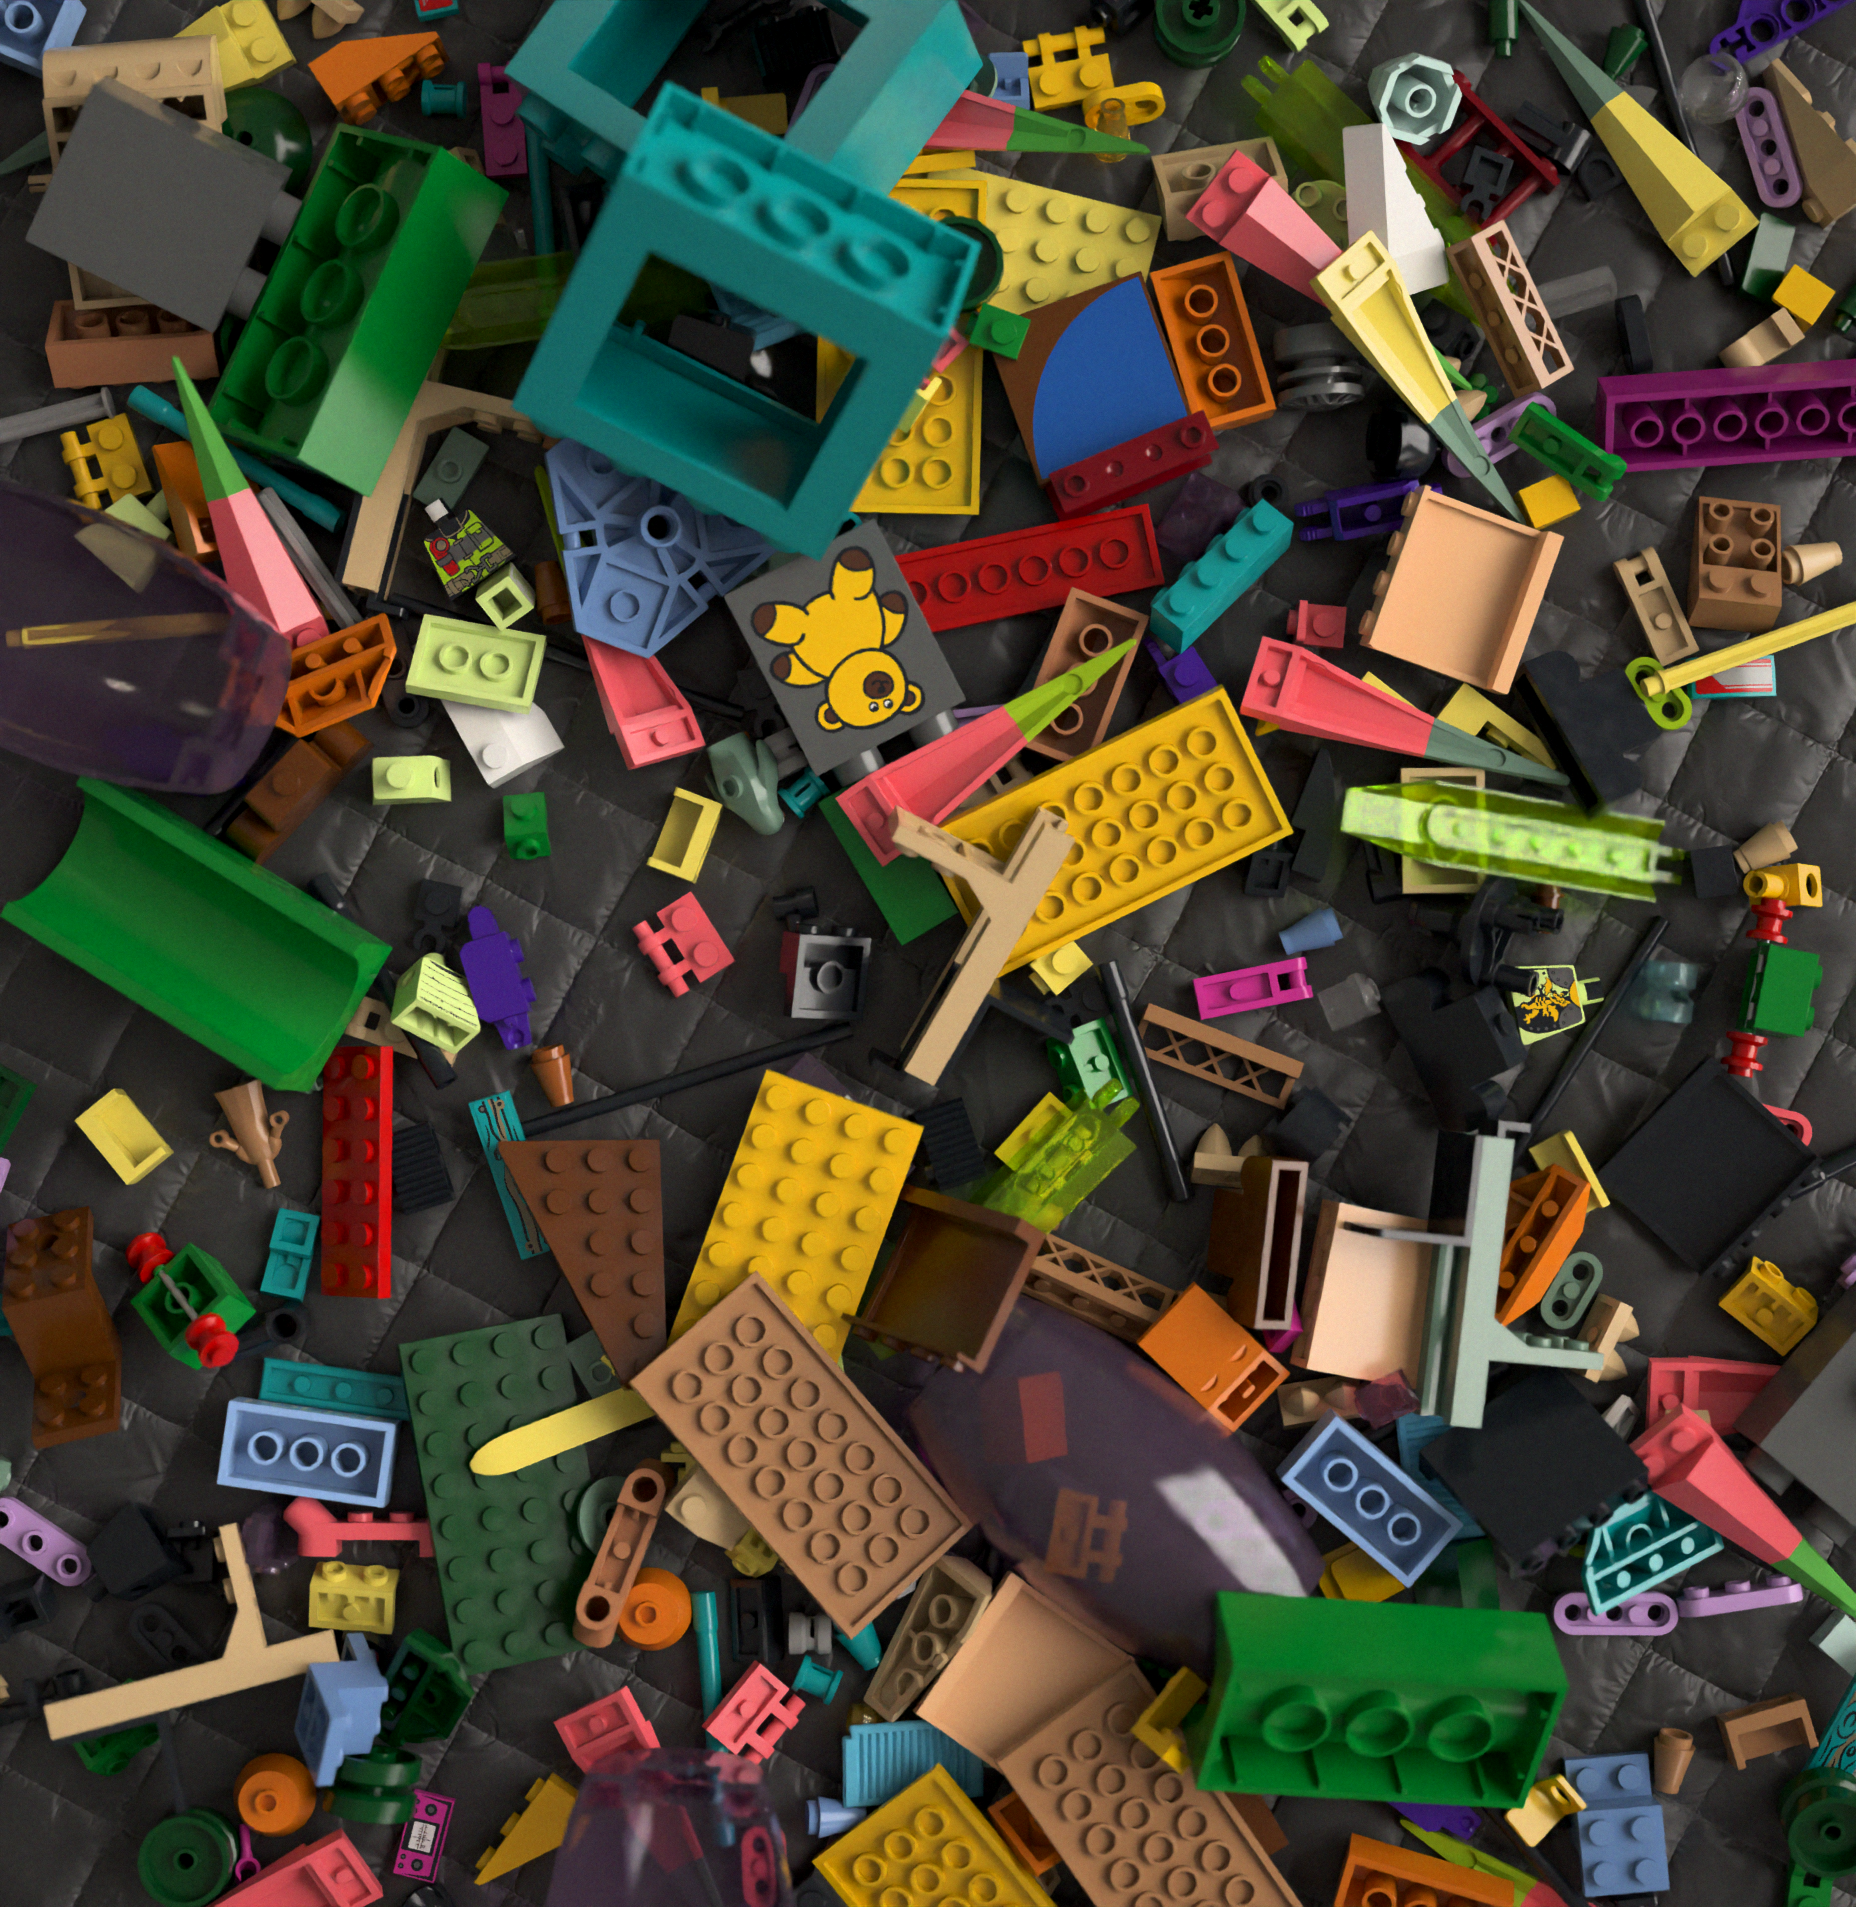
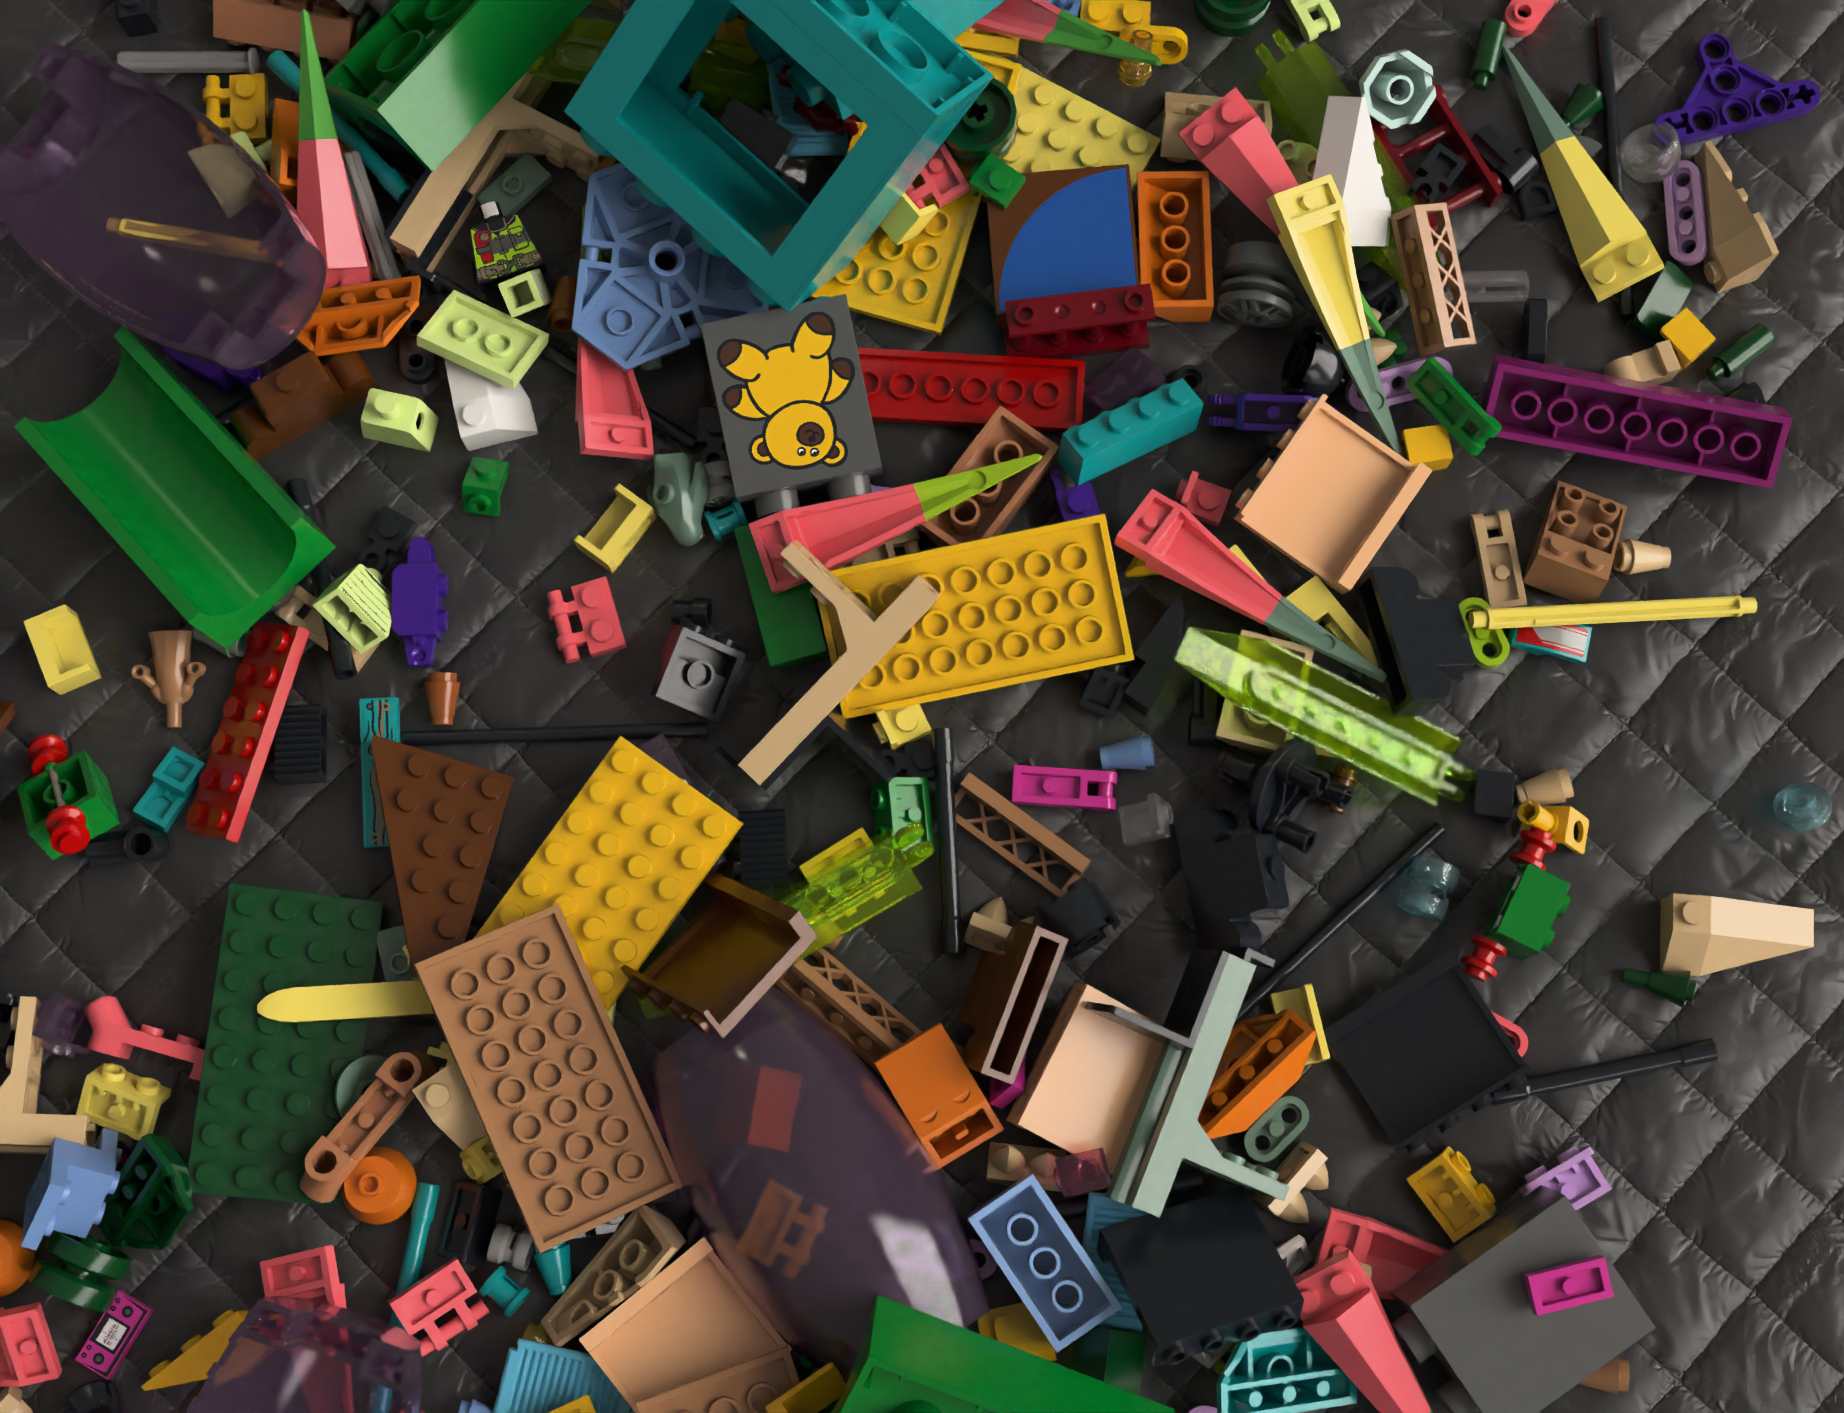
camera: 20 degrees right, 10 degrees down
(309, 1452) = (126, 960): light blue brick -> none
(333, 1388) = (164, 913): teal tile -> none
(1555, 1003) = (1323, 871): torso -> none

